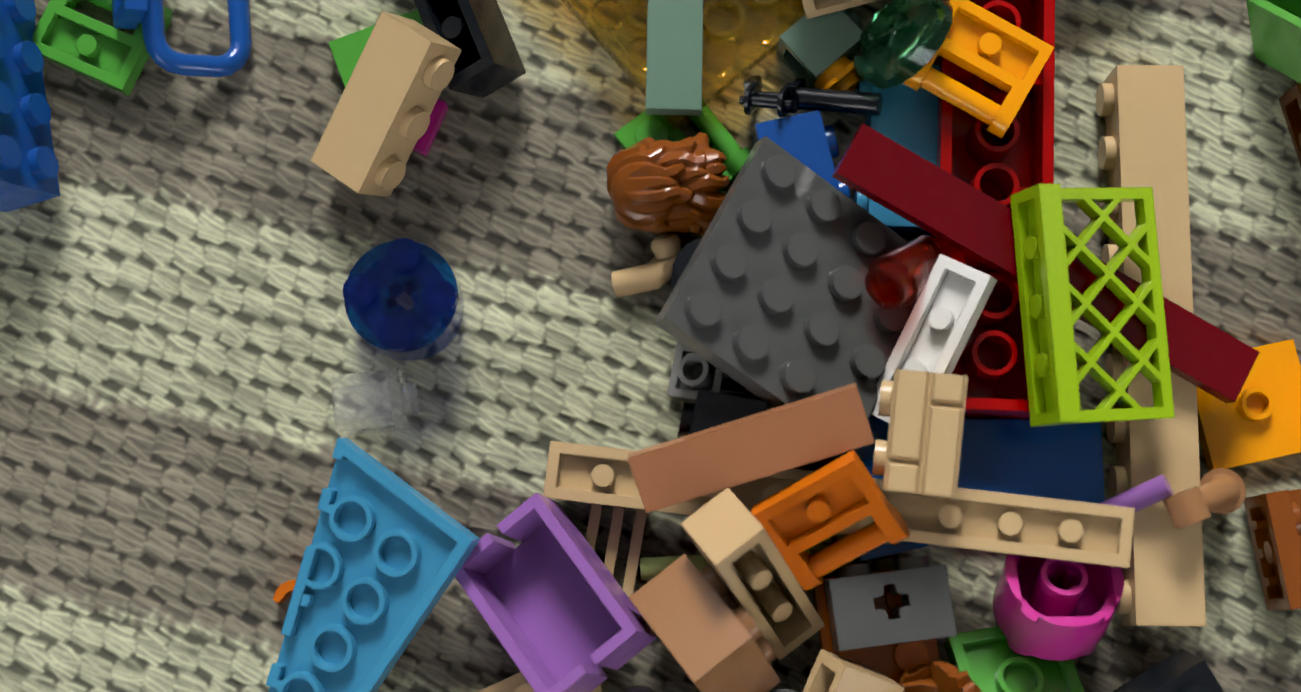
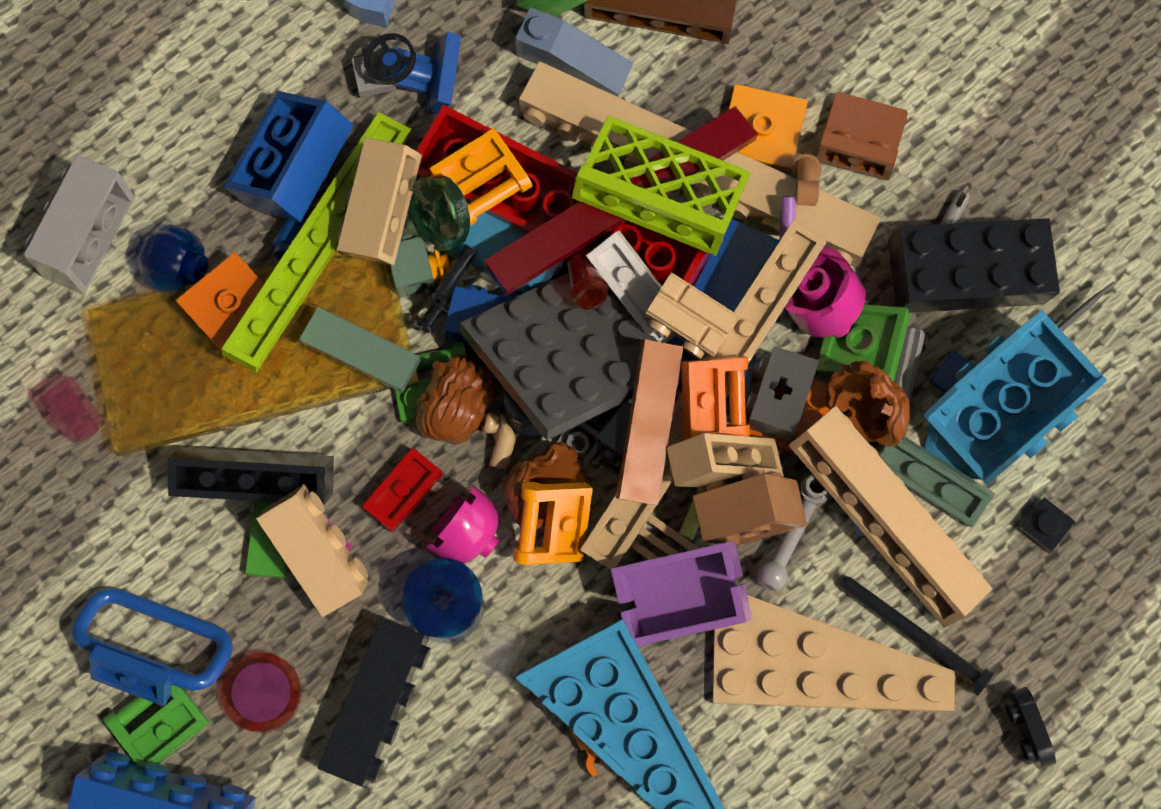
camera: 60 degrees left, 5 degrees down
(192, 138) = (261, 692): none -> tile
(234, 280) = (374, 703): none -> black brick
(509, 282) = (466, 528): none -> dark pink cylinder
(525, 179) = (402, 490): none -> red plate
(575, 404) = (564, 525): none -> light orange plate
(616, 353) = (552, 466): none -> dark orange hair
(1220, 102) = (571, 51): none -> sand blue slope

